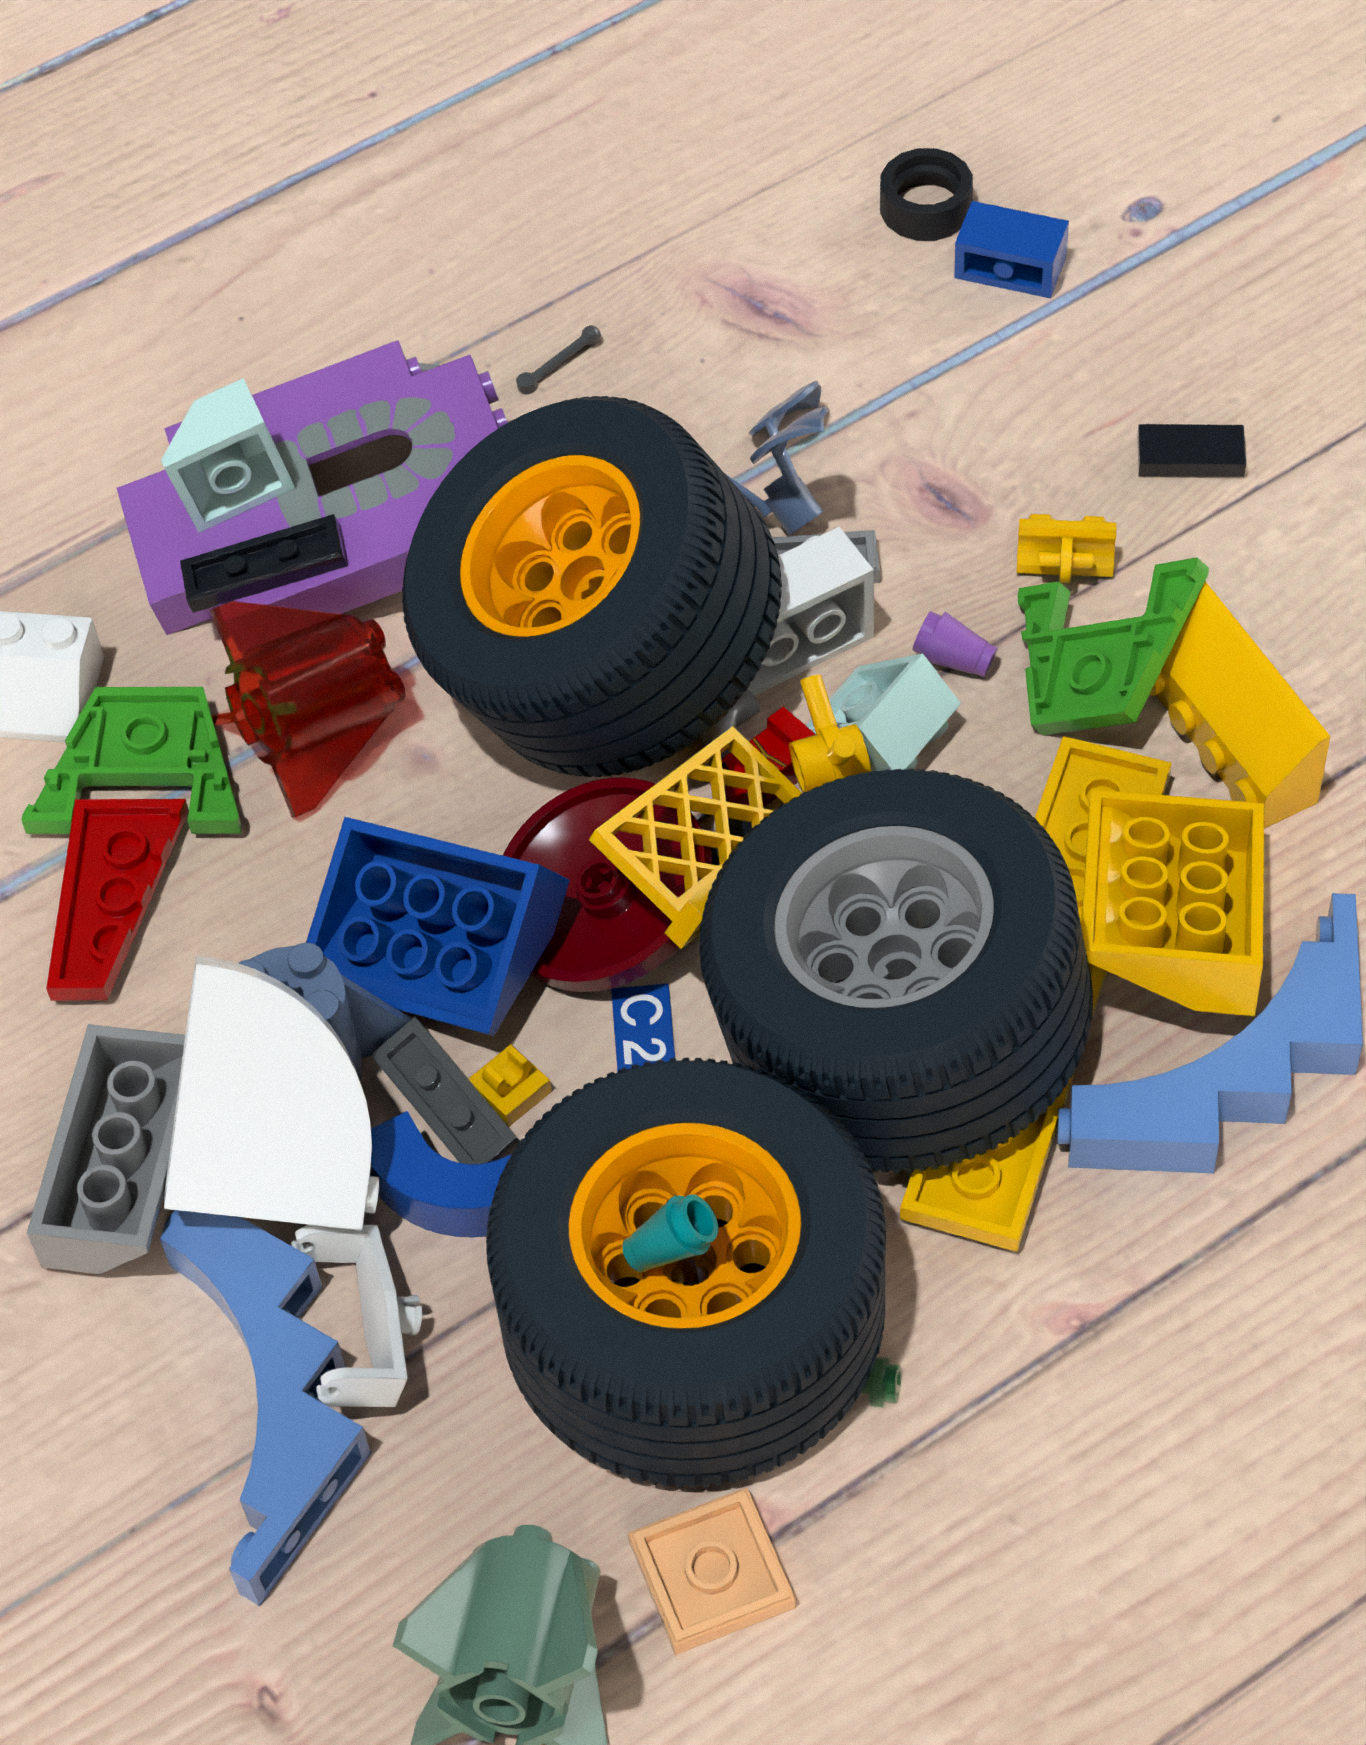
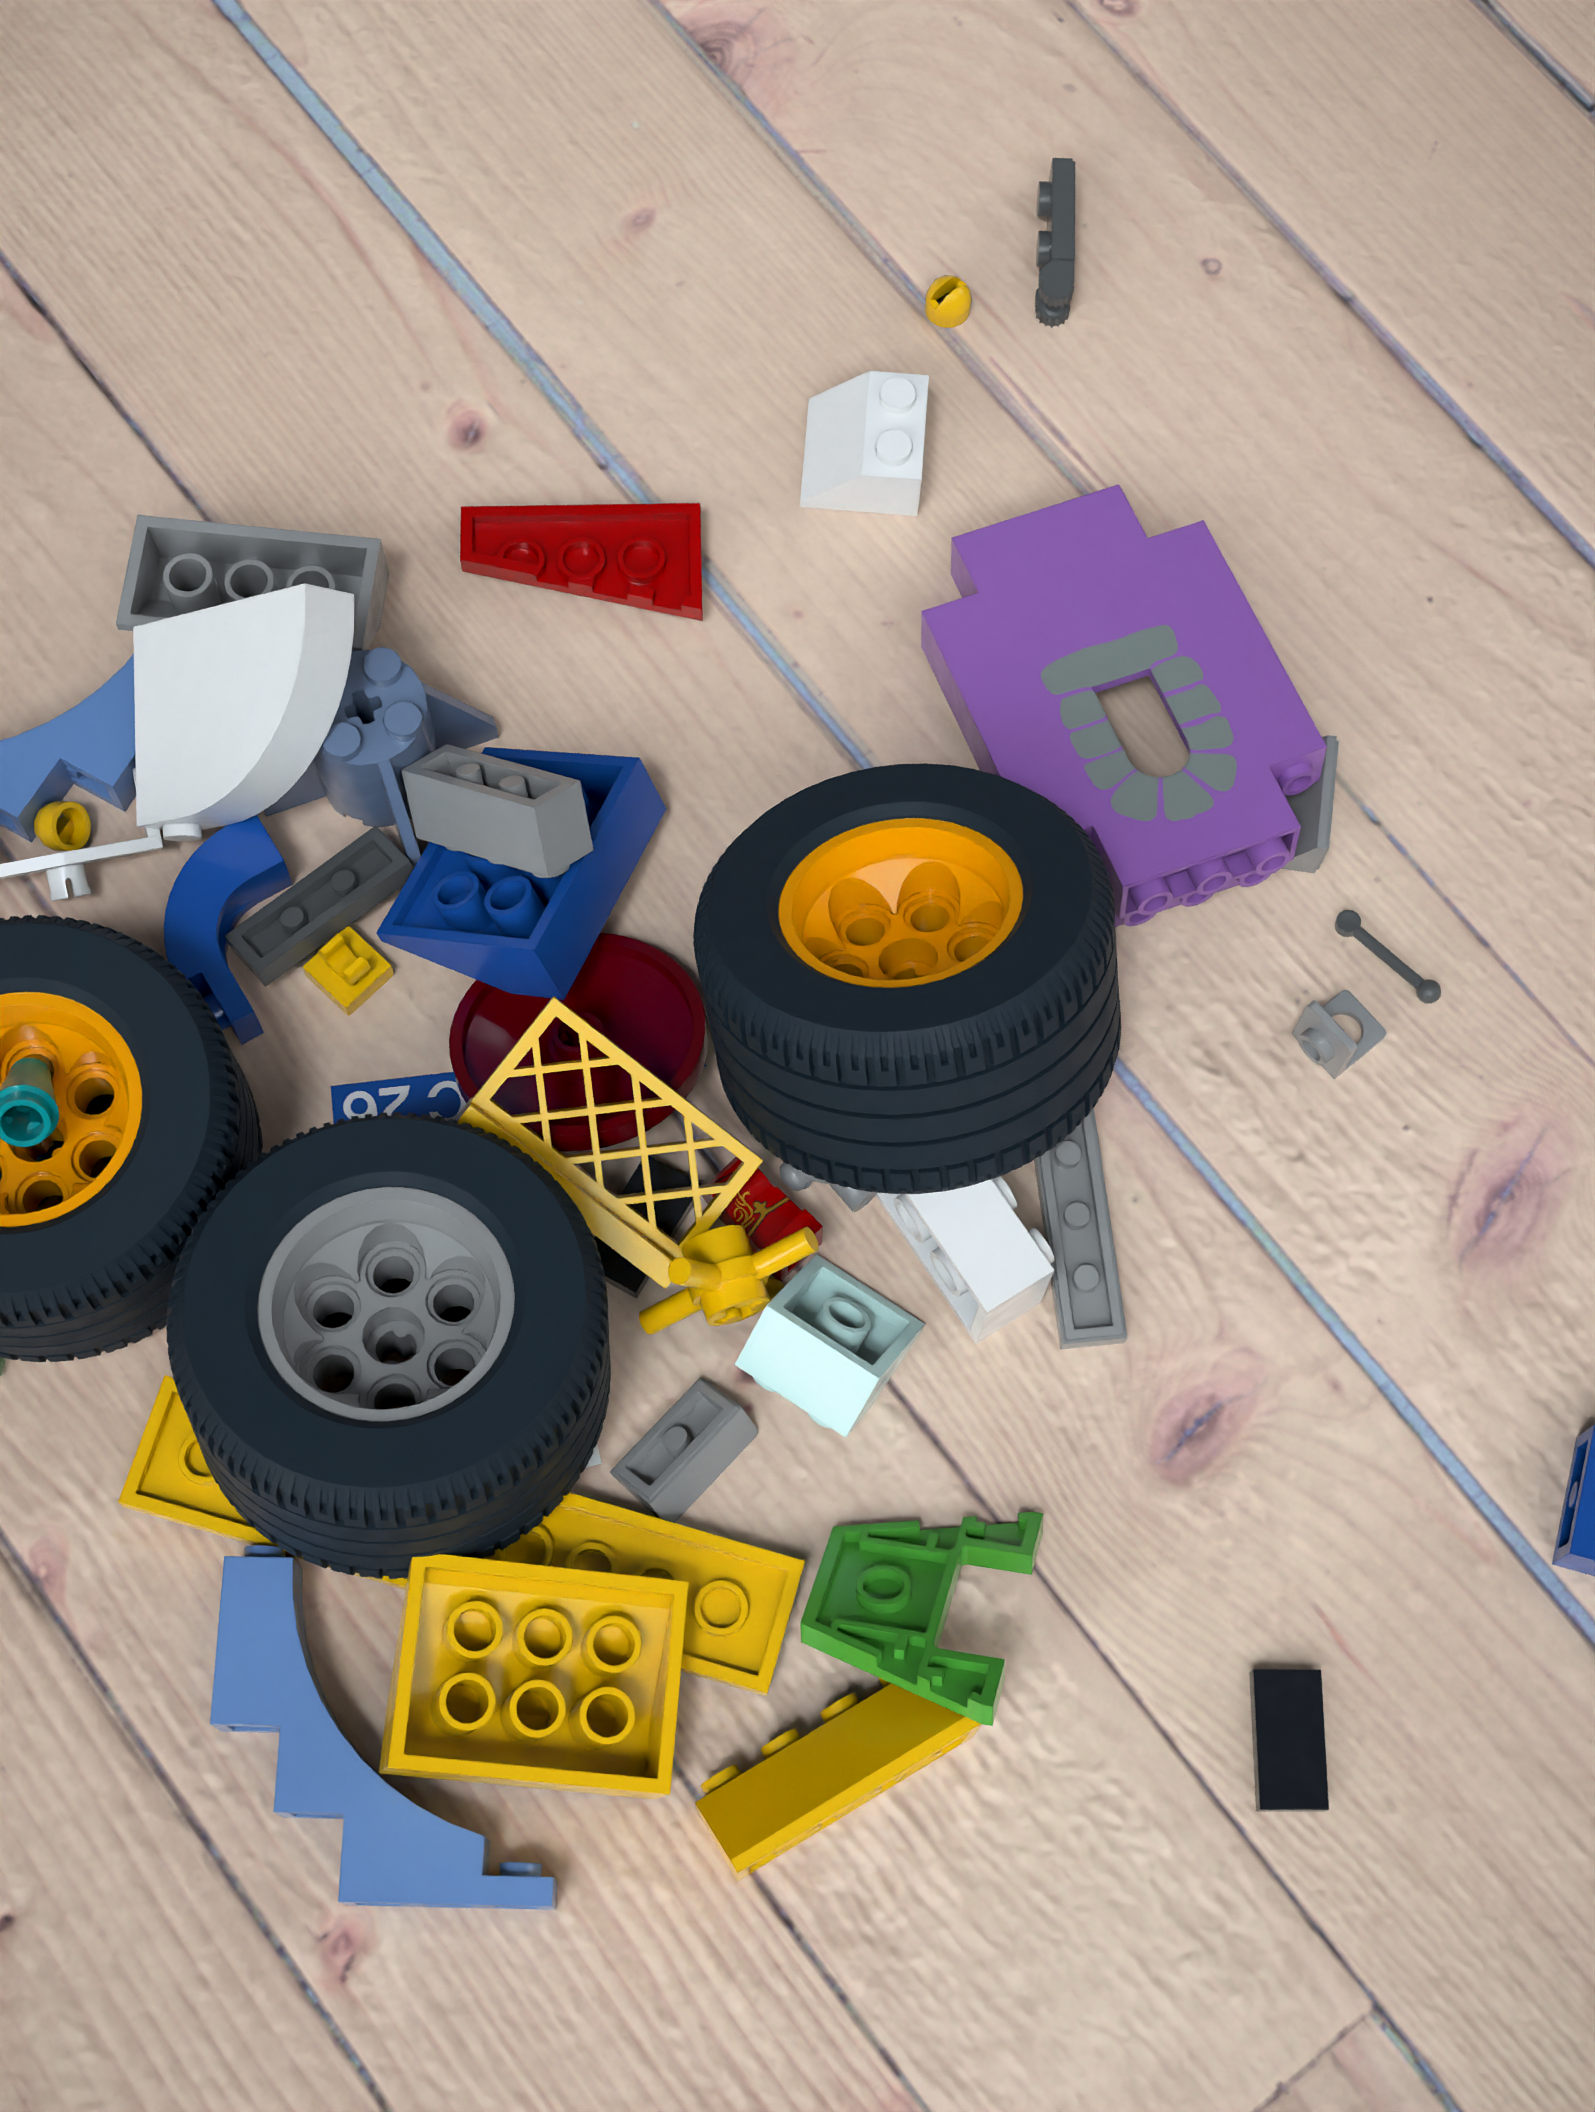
camera: 80 degrees right, 15 degrees up
(140, 741) = (789, 566): bright green wing -> none
(224, 458) = (1115, 572): light aqua slope -> none
(263, 563) = (992, 641): black tile -> none
(305, 691) = (819, 699): clear red brick -> none
(341, 1324) = (66, 833): none -> yellow hinge
(396, 903) = (498, 810): none -> light grey brick
(630, 381) = (1327, 1042): none -> light grey bracket
(788, 494) = (1176, 1218): sand blue plant -> none
(953, 645) = (947, 1432): medium lavender cone -> none
(1066, 547) = (1098, 1570): yellow hips -> none

